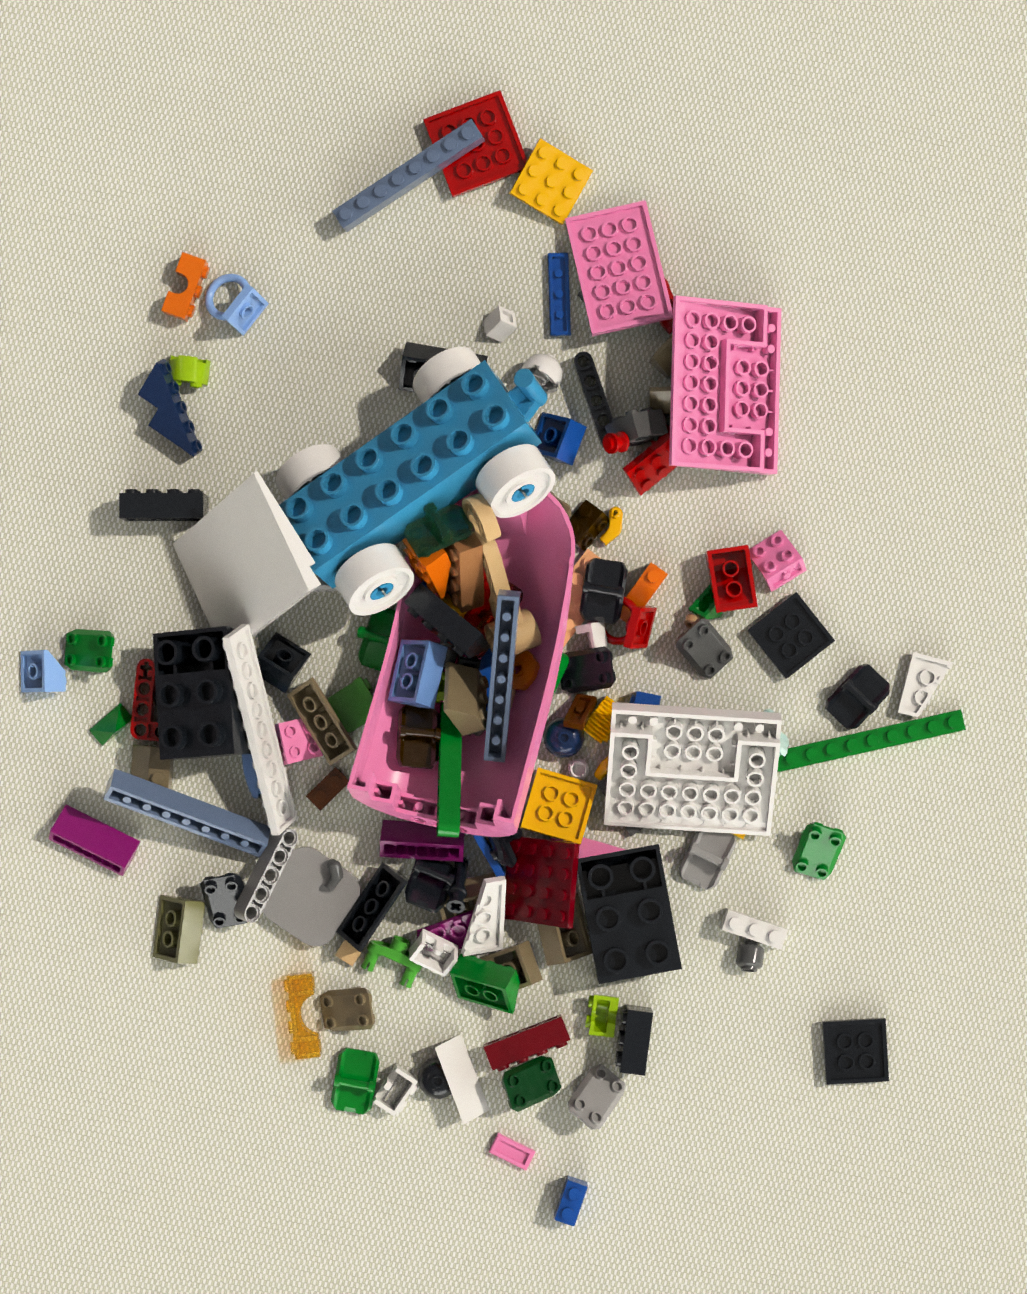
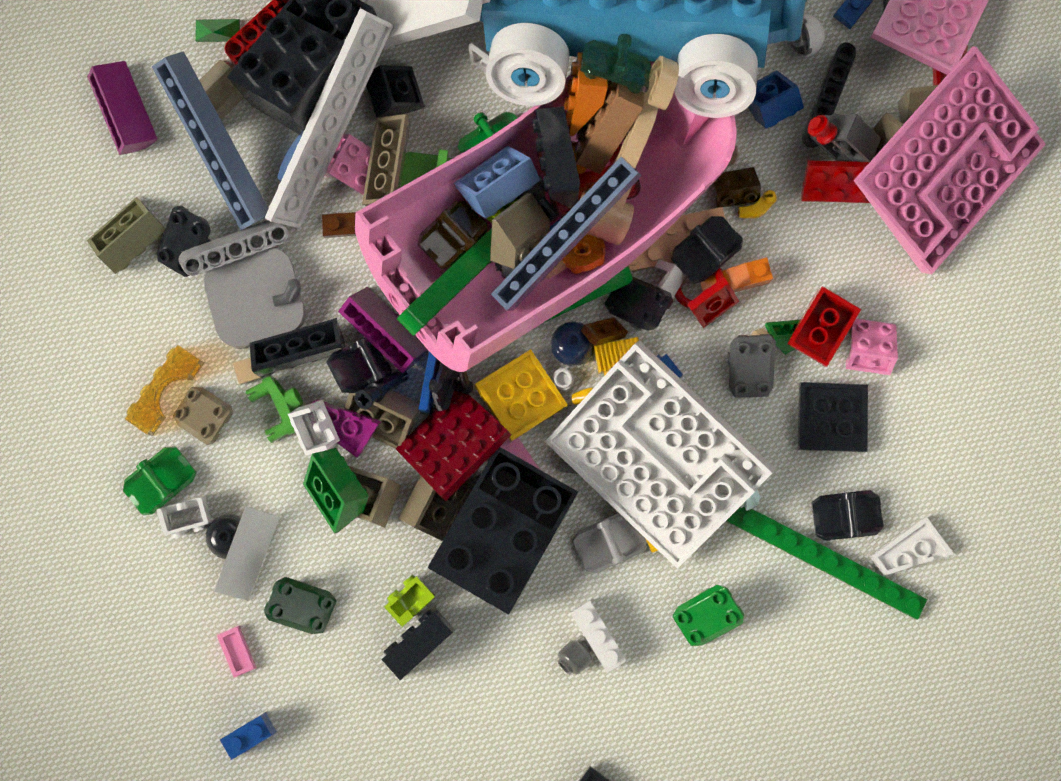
camera: 40 degrees right, 5 degrees down
(487, 921) = (380, 437): white wing -> none
(526, 1042) = (326, 569): dark red brick -> none
(596, 1096) = (345, 665): light grey shield -> none

